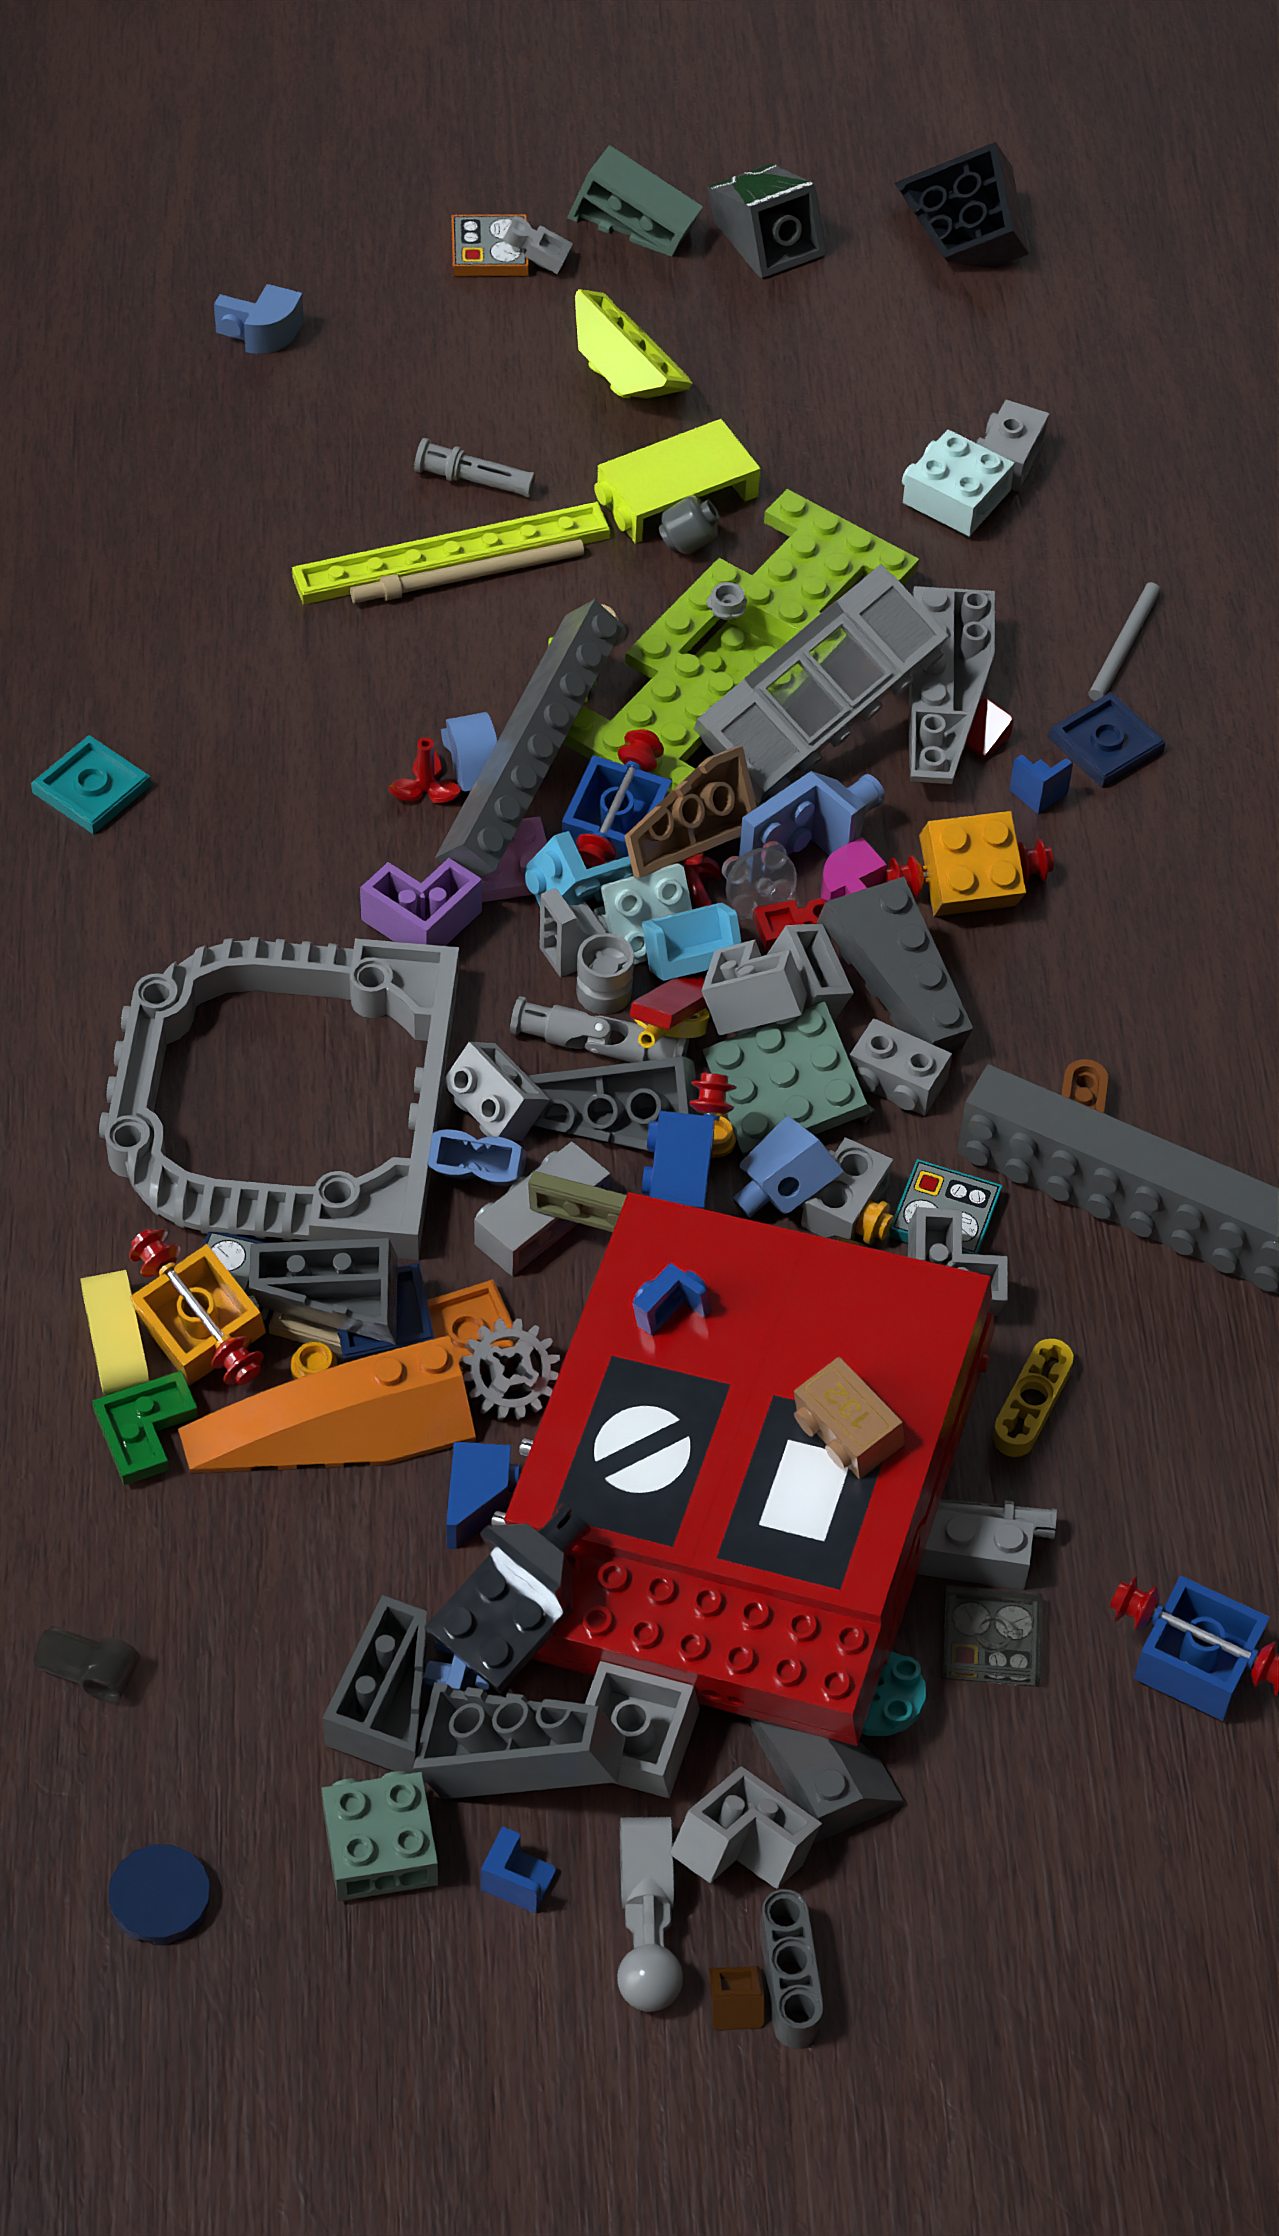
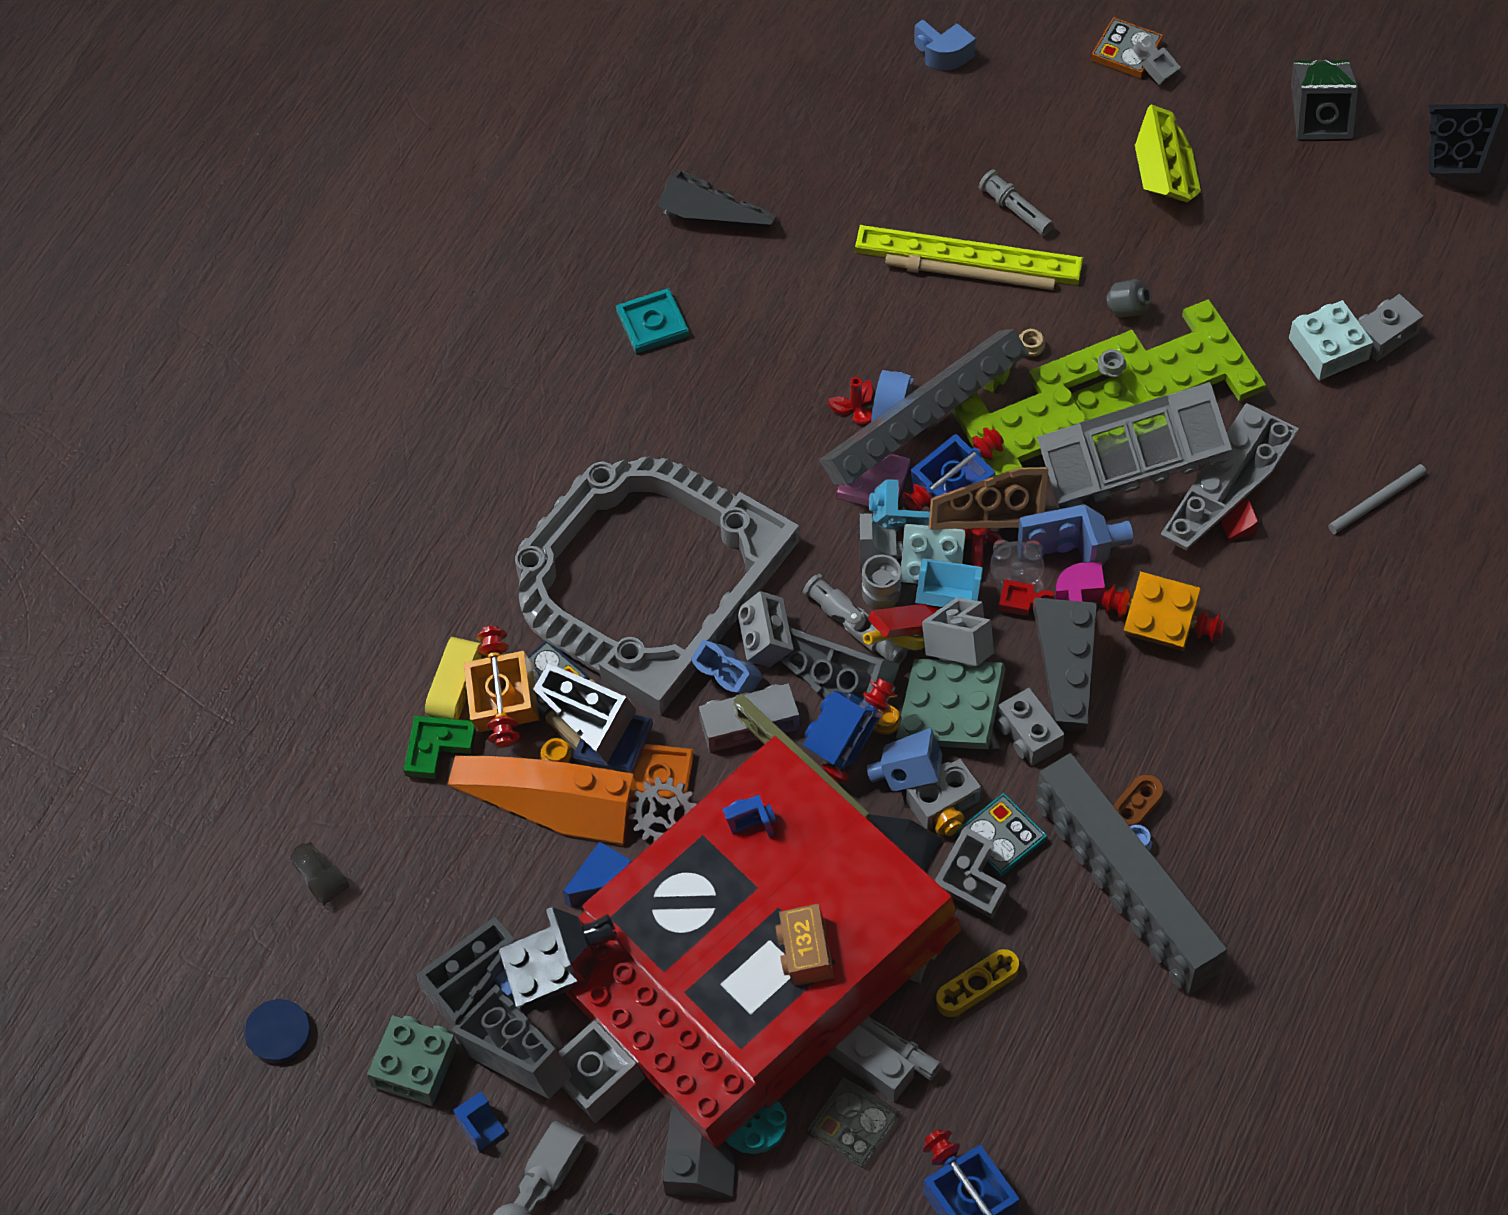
camera: 35 degrees right, 5 degrees up
(59, 614) = (692, 198): none -> dark grey wedge
(422, 911) = (795, 493): medium lavender brick -> none
(635, 202) = (1238, 54): sand green wedge -> none
(672, 470) = (1143, 257): neon yellow panel -> none
(746, 1824) = (620, 1160): light grey brick -> none
(817, 965) = (1011, 636): light grey brick -> none
(1038, 783) = (1251, 574): blue panel -> none
(1106, 739) = (1319, 563): dark blue tile -> none

